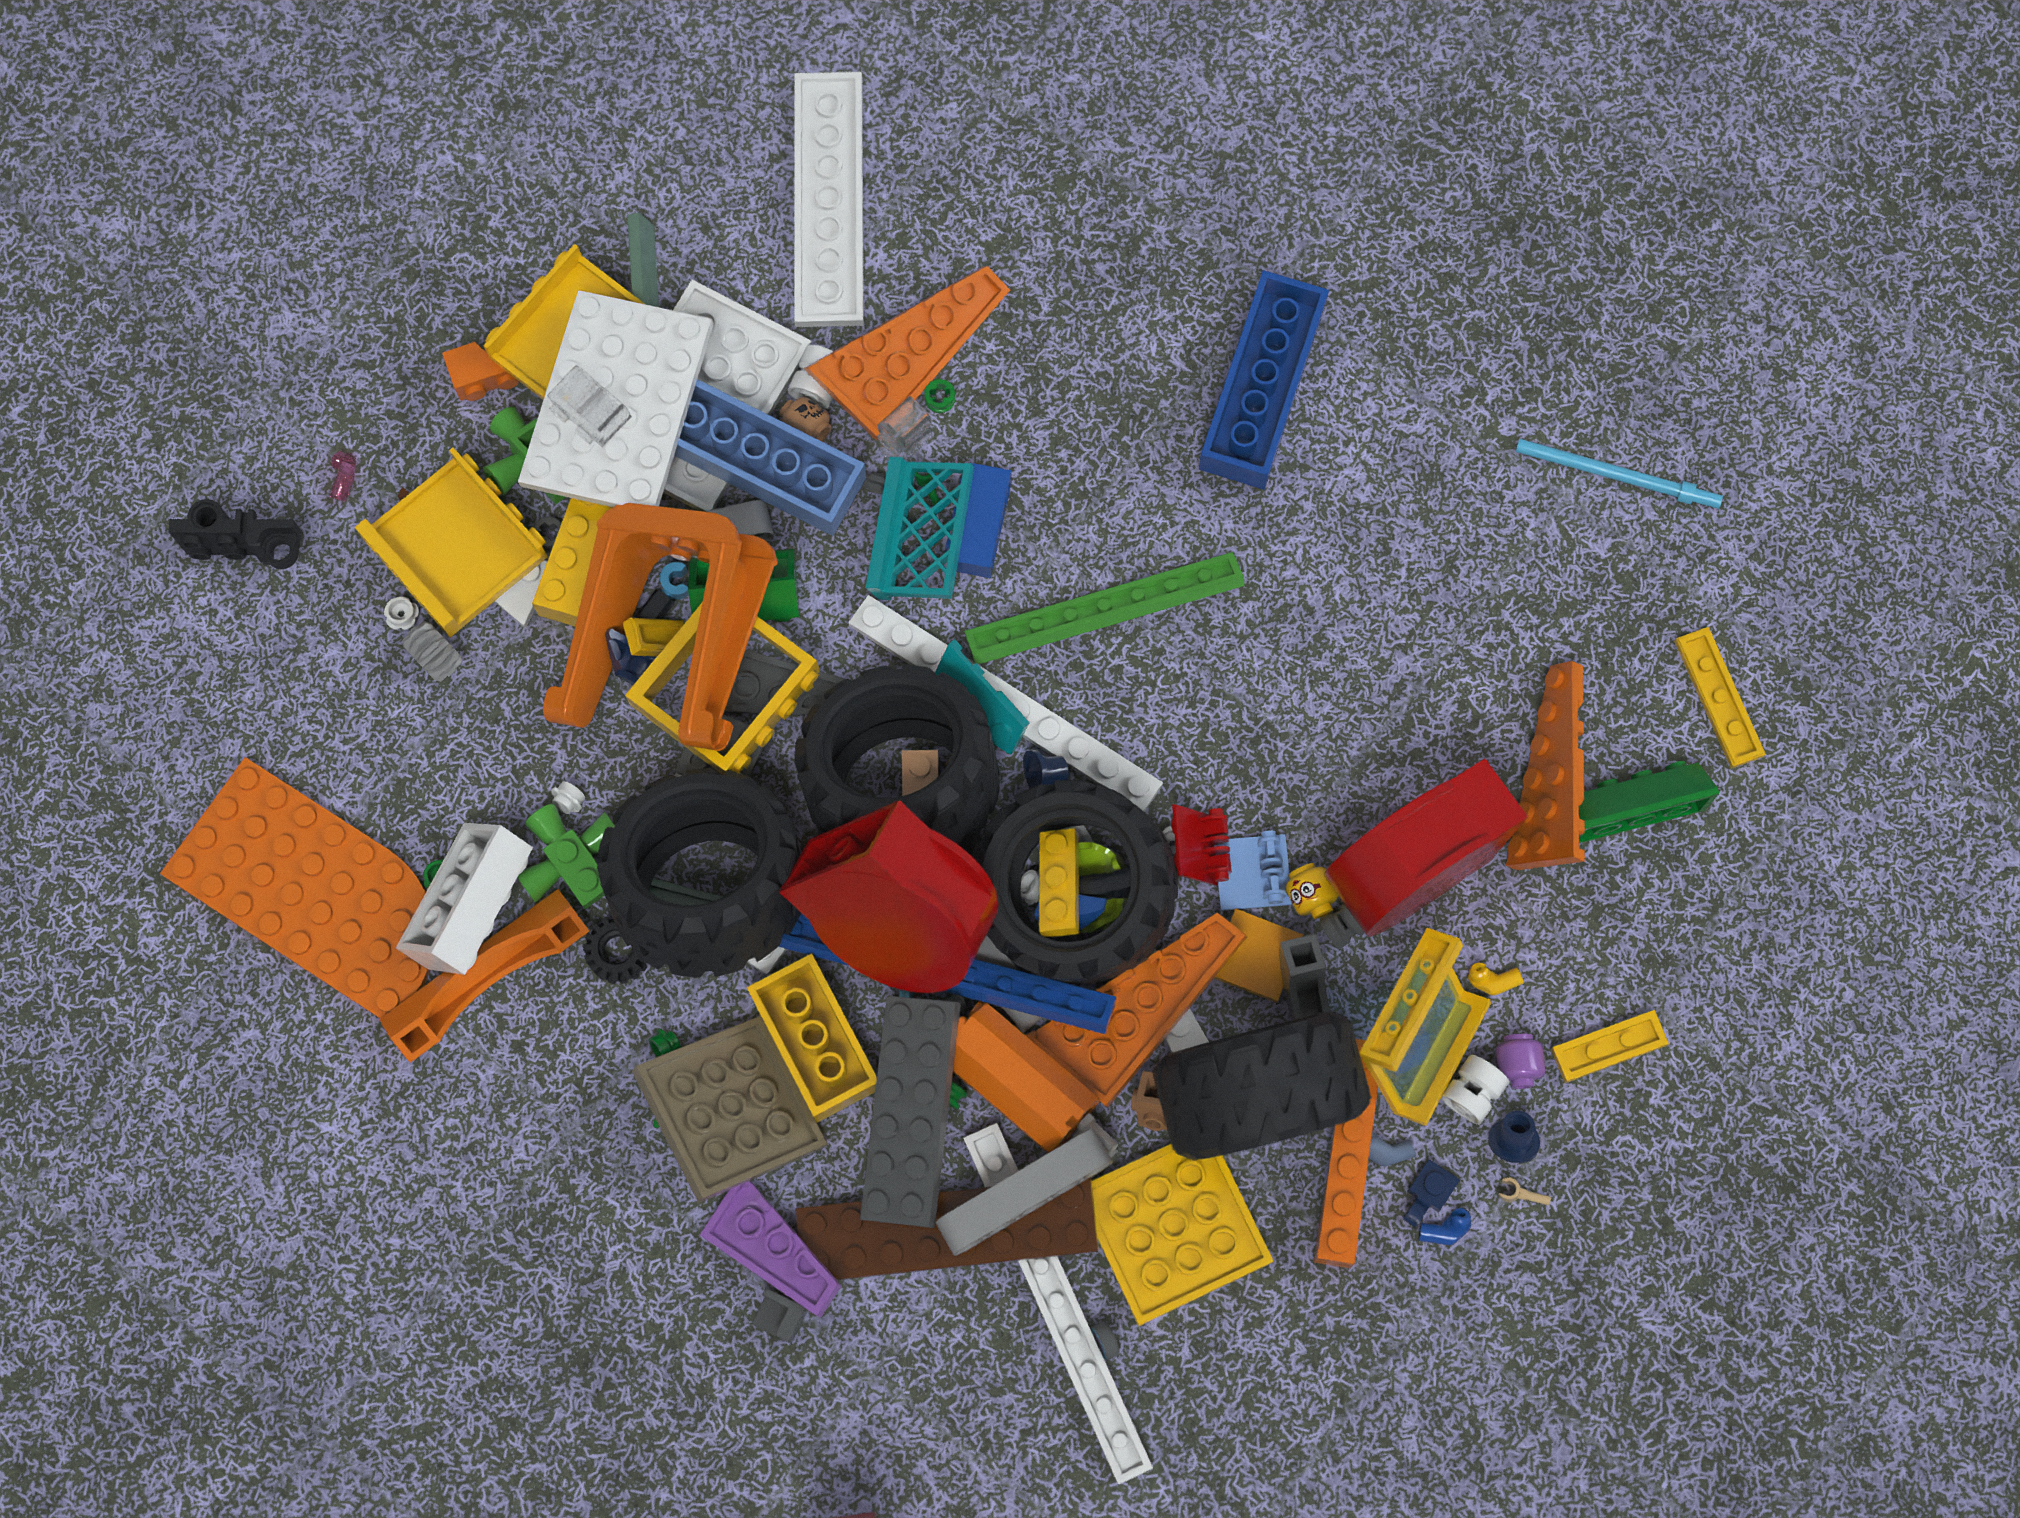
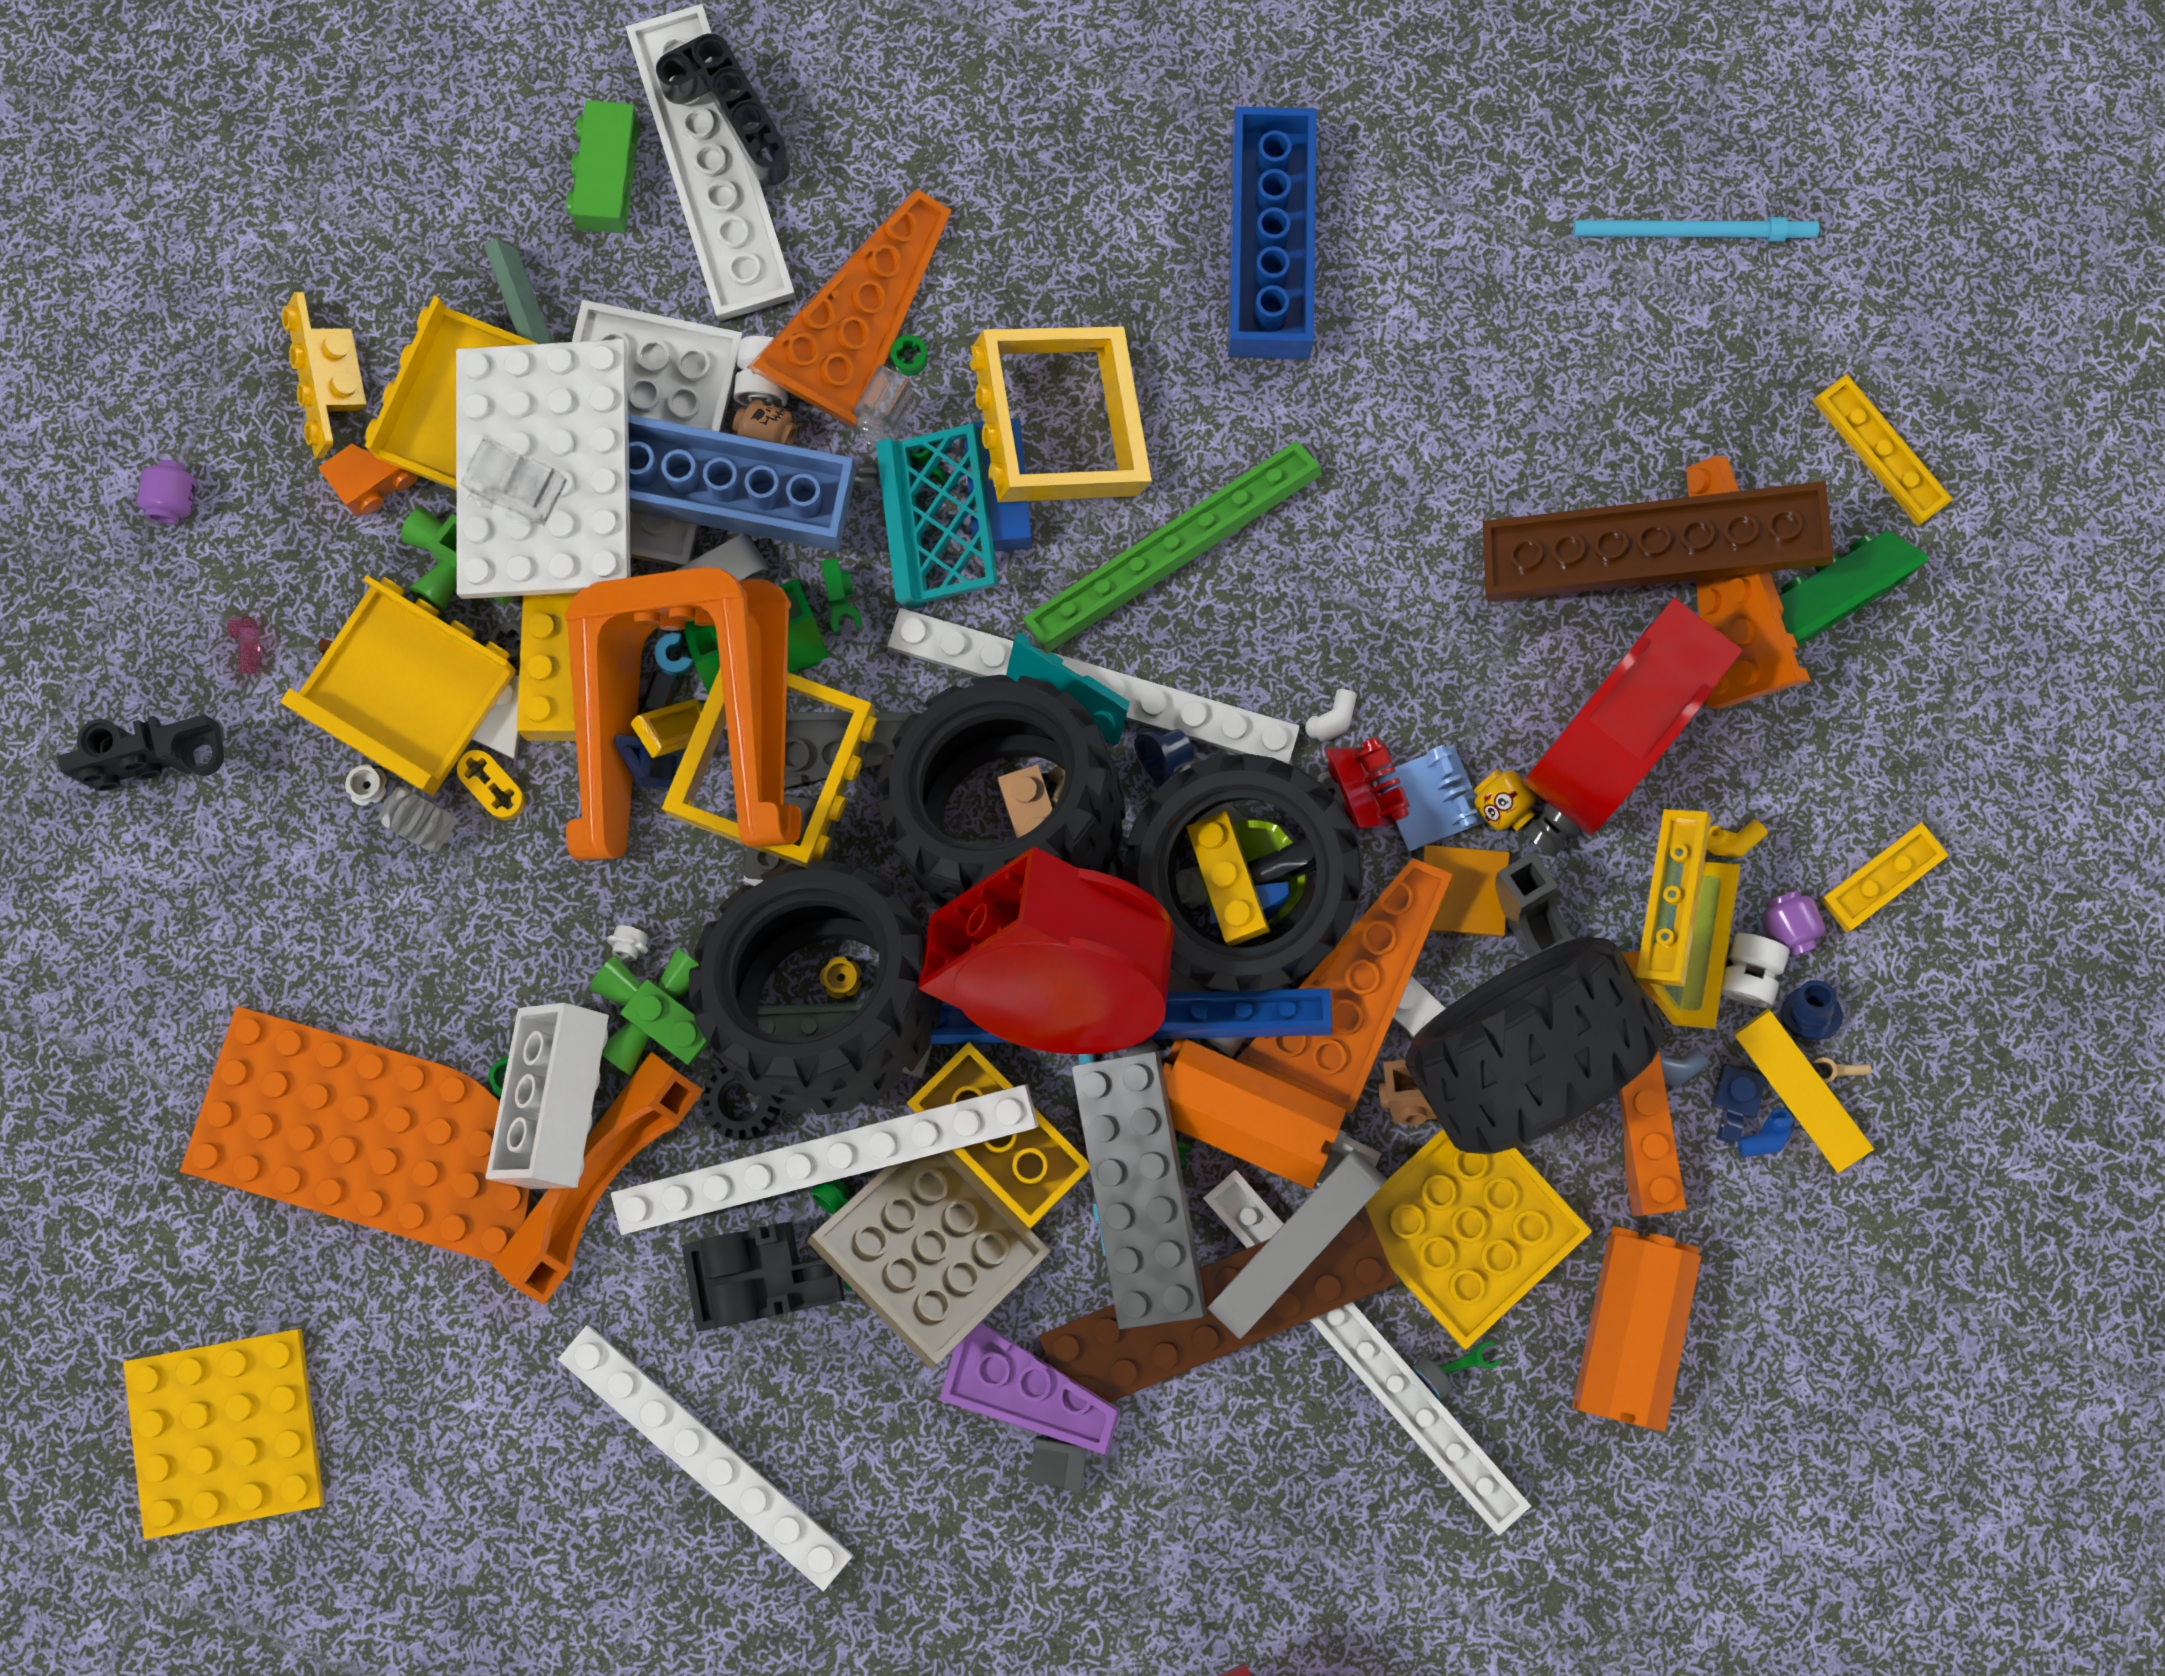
camera: 20 degrees left, 5 degrees up
(128, 1090) = (223, 1434): none -> yellow plate
(318, 339) = (166, 492): none -> medium lavender head
(472, 282) = (326, 373): none -> yellow bracket
(500, 1226) = (705, 1457): none -> white plate
(506, 638) = (483, 791): none -> yellow beam
(583, 1091) = (754, 1277): none -> black plate
(668, 1013) = (825, 1159): none -> white plate
(721, 869) = (838, 966): none -> yellow plate
(742, 179) = (604, 166): none -> bright green brick
(823, 563) = (838, 586): none -> green plate
(861, 163) = (736, 110): none -> black beam
(986, 477) = (1121, 403): none -> yellow window
(1141, 1337) = (1471, 1360): none -> green hand
(1192, 788) = (1335, 721): none -> white arm
(1284, 1349) = (1637, 1328): none -> orange brick
(1485, 1199) = (1803, 1090): none -> yellow tile
(1499, 716) = (1658, 542): none -> reddish brown plate

